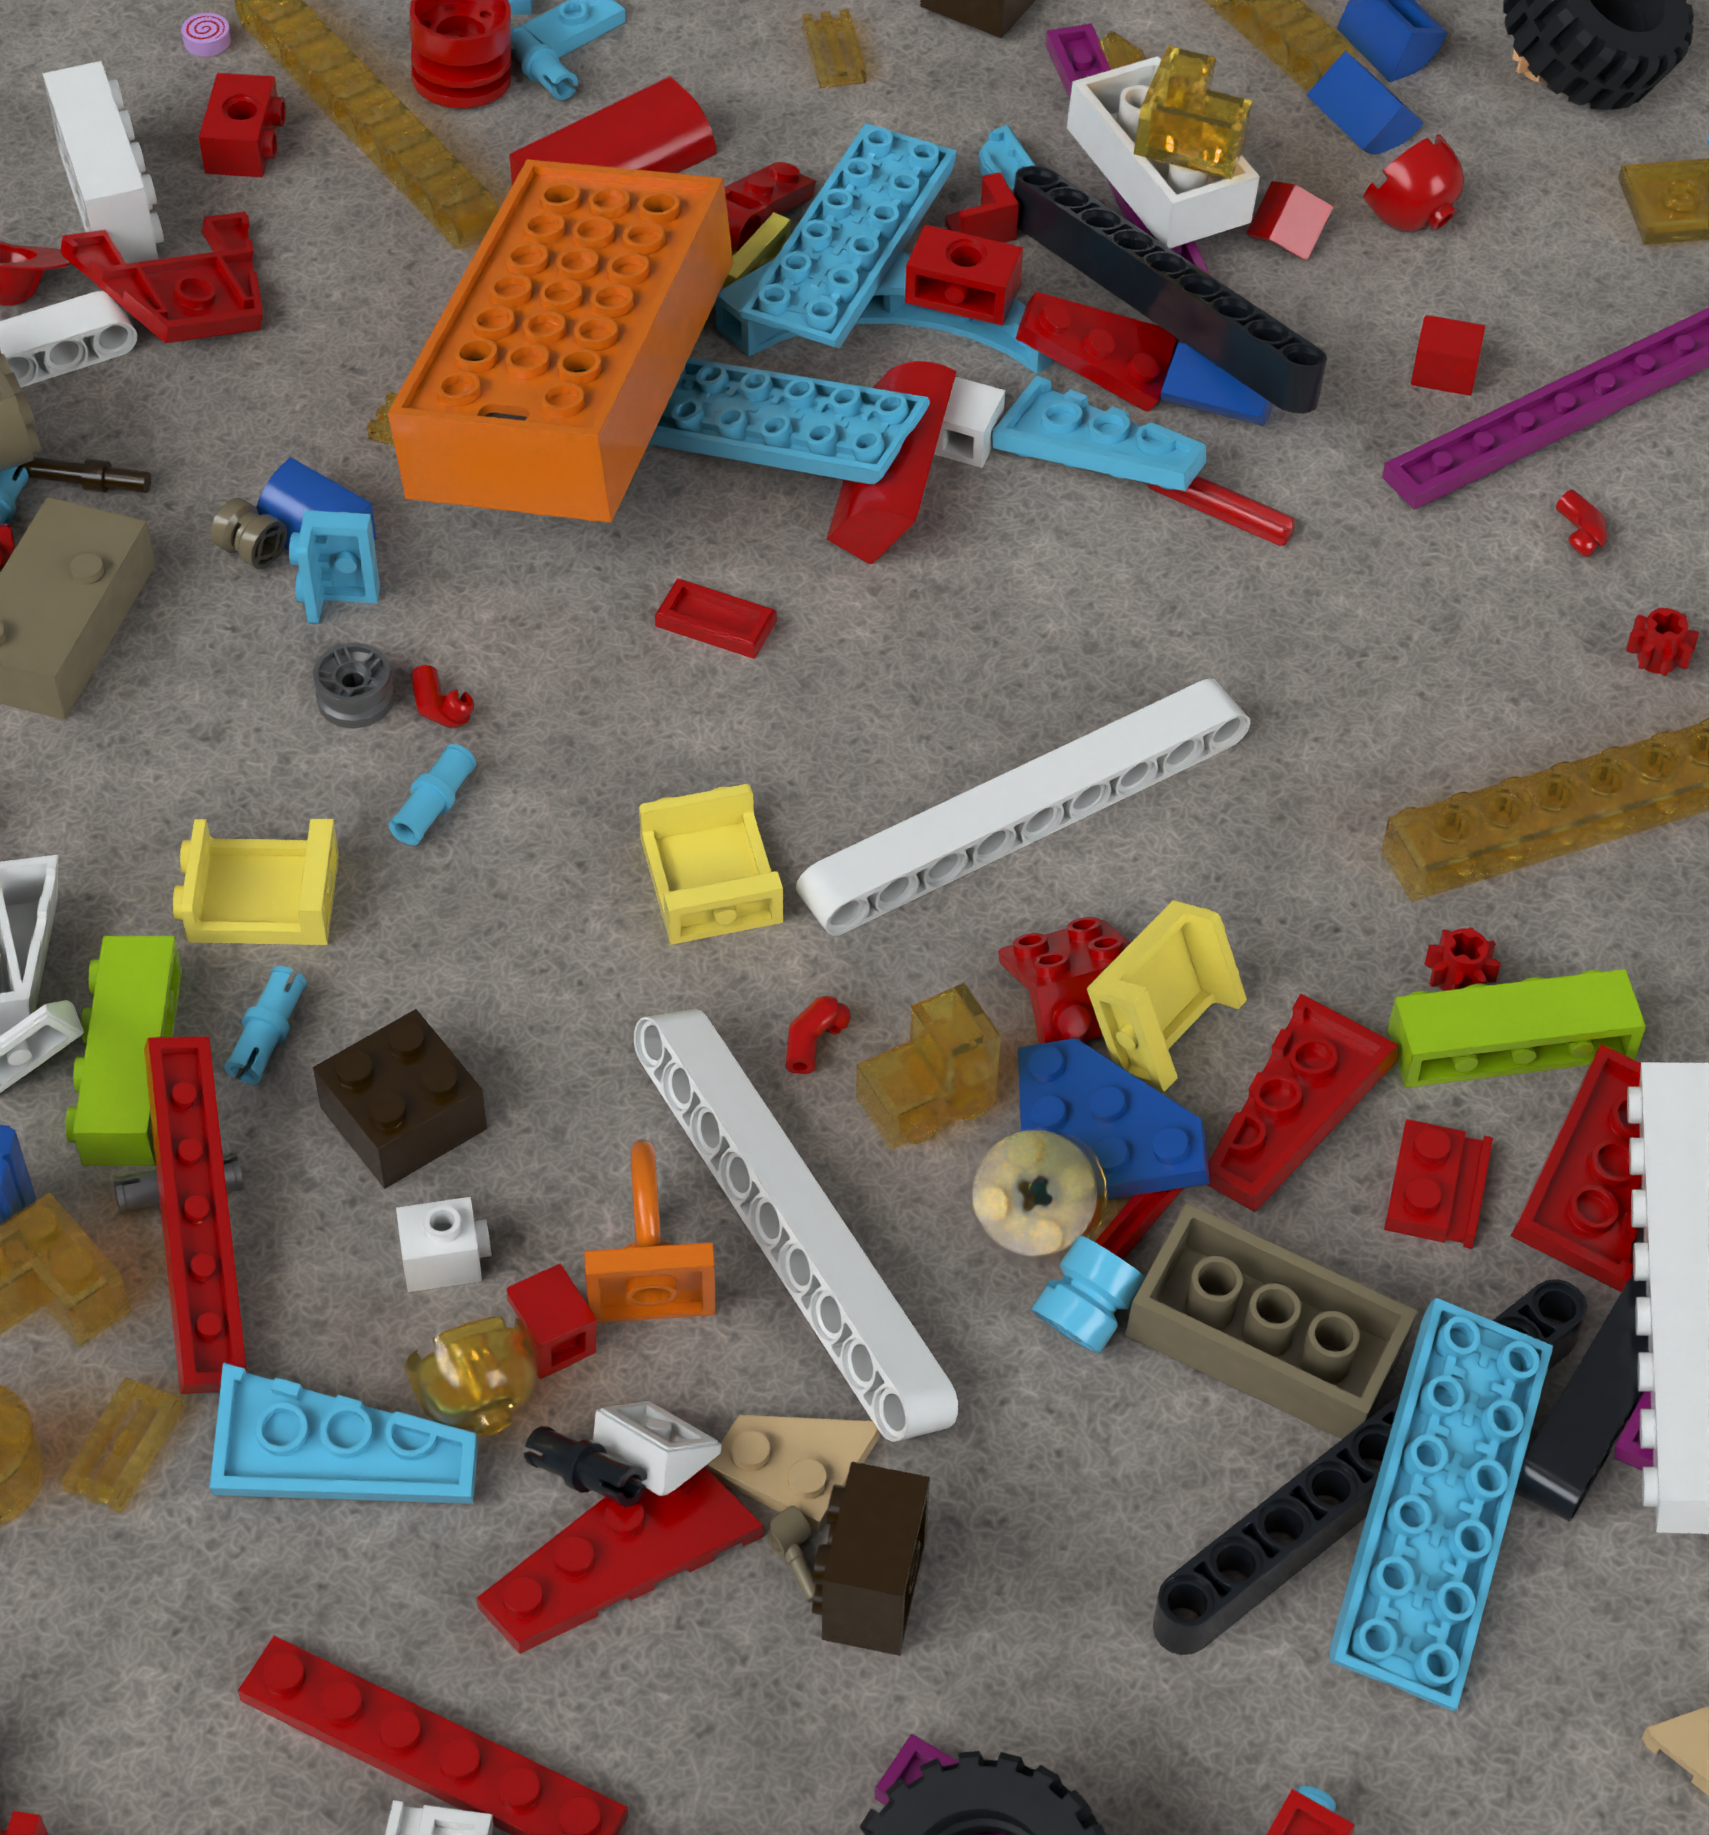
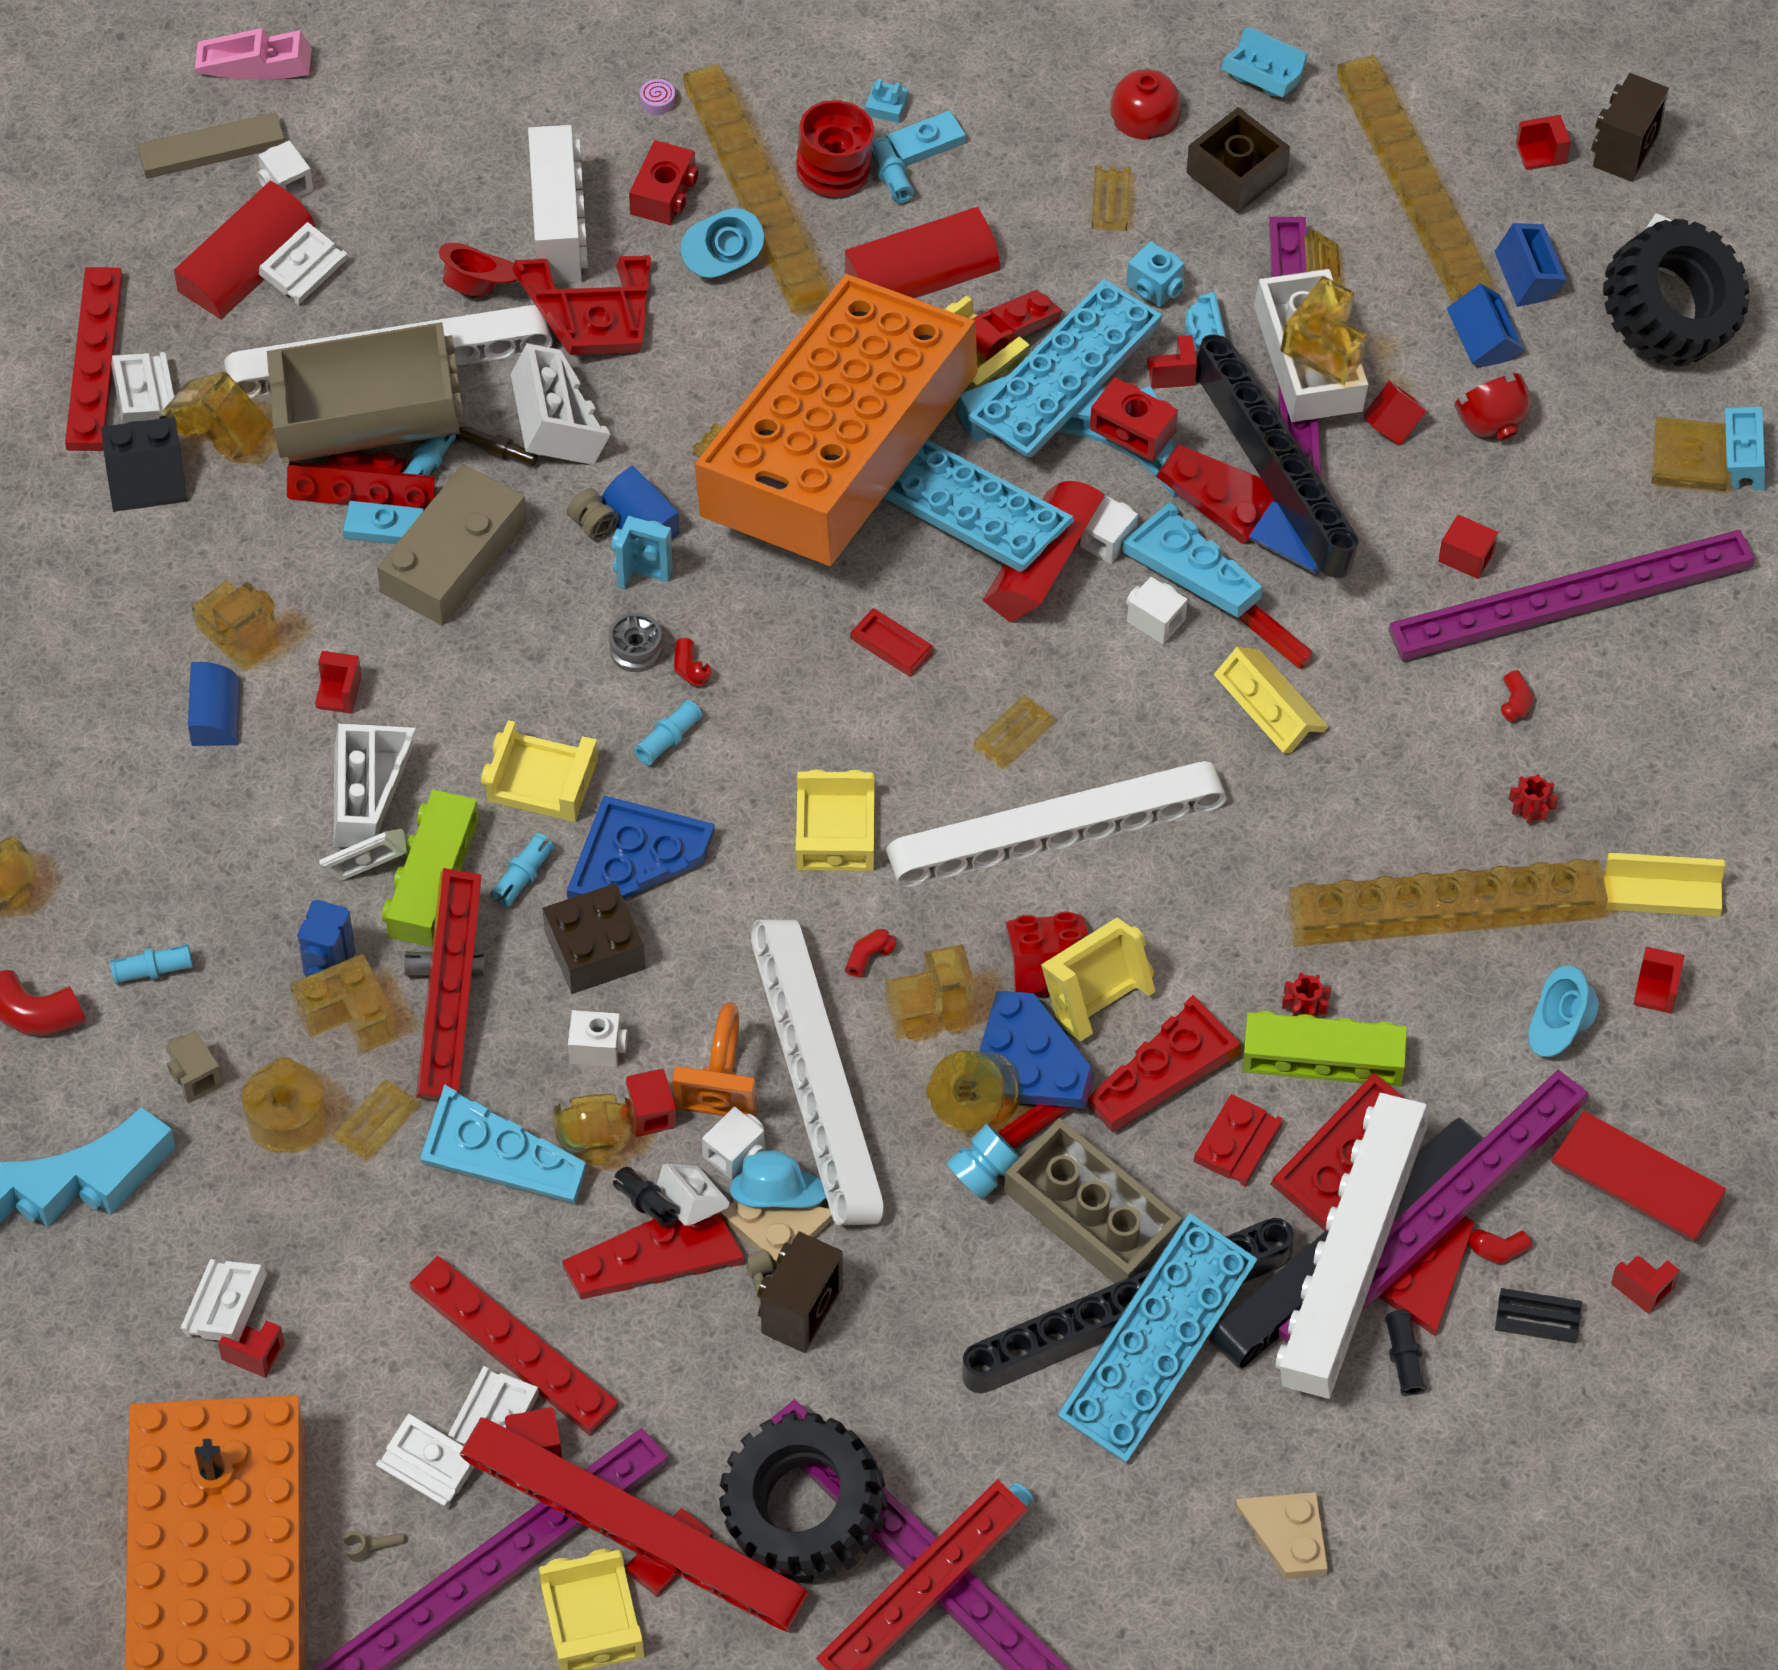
camera: 15 degrees right, 5 degrees up
(160, 412) = (552, 410): none -> white wedge
(341, 174) = (722, 243): none -> medium azure piece
(432, 958) = (638, 848): none -> blue plate
(698, 1353) = (732, 1141): none -> white brick
(779, 1396) = (775, 1181): none -> medium azure piece
(905, 729) = (994, 752): none -> clear yellow tile
(927, 111) = (1155, 274): none -> medium azure brick
(1067, 506) = (1156, 609): none -> white brick
(1256, 589) = (1269, 698): none -> light yellow panel

